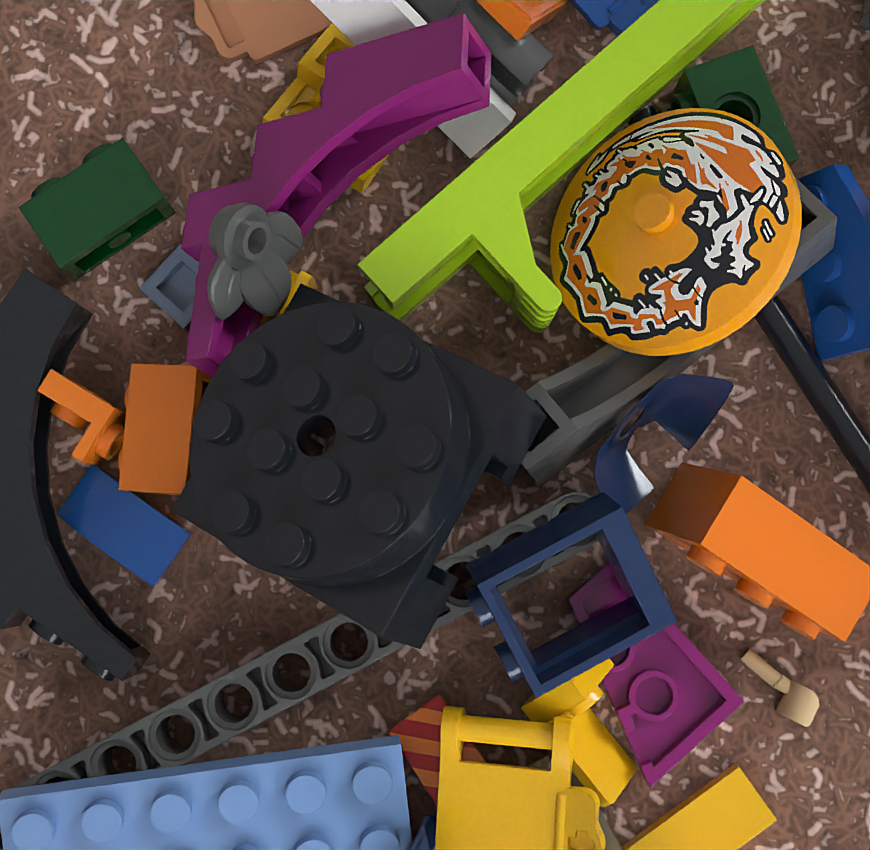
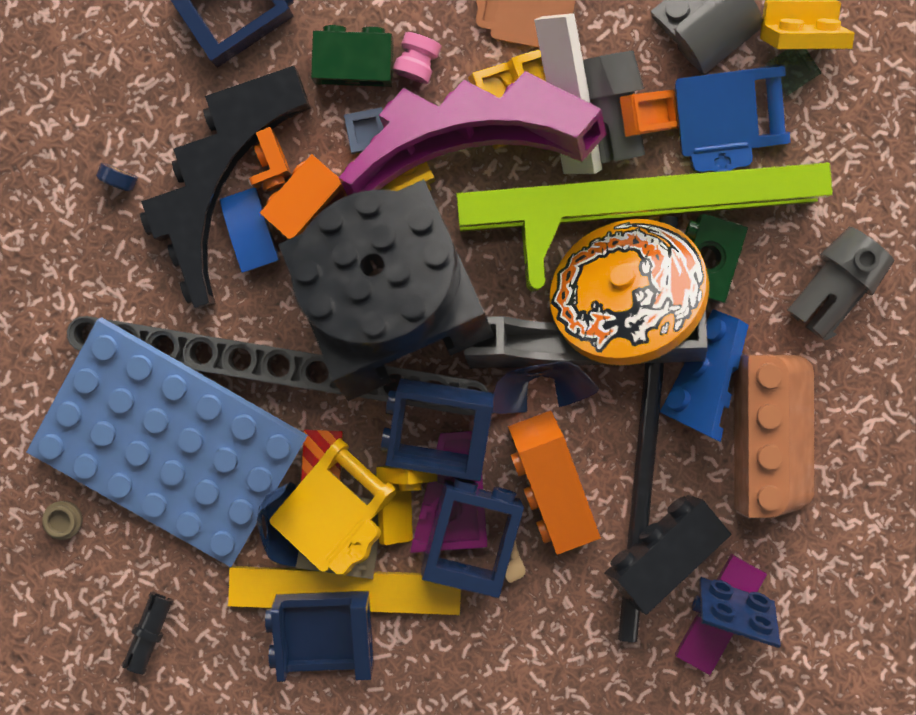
camera: 40 degrees right, 5 degrees up
(179, 149) = (416, 59): none -> bright pink wheel
(251, 259) = (407, 151): dark grey plate -> none
(746, 765) = (464, 575): none -> dark blue window

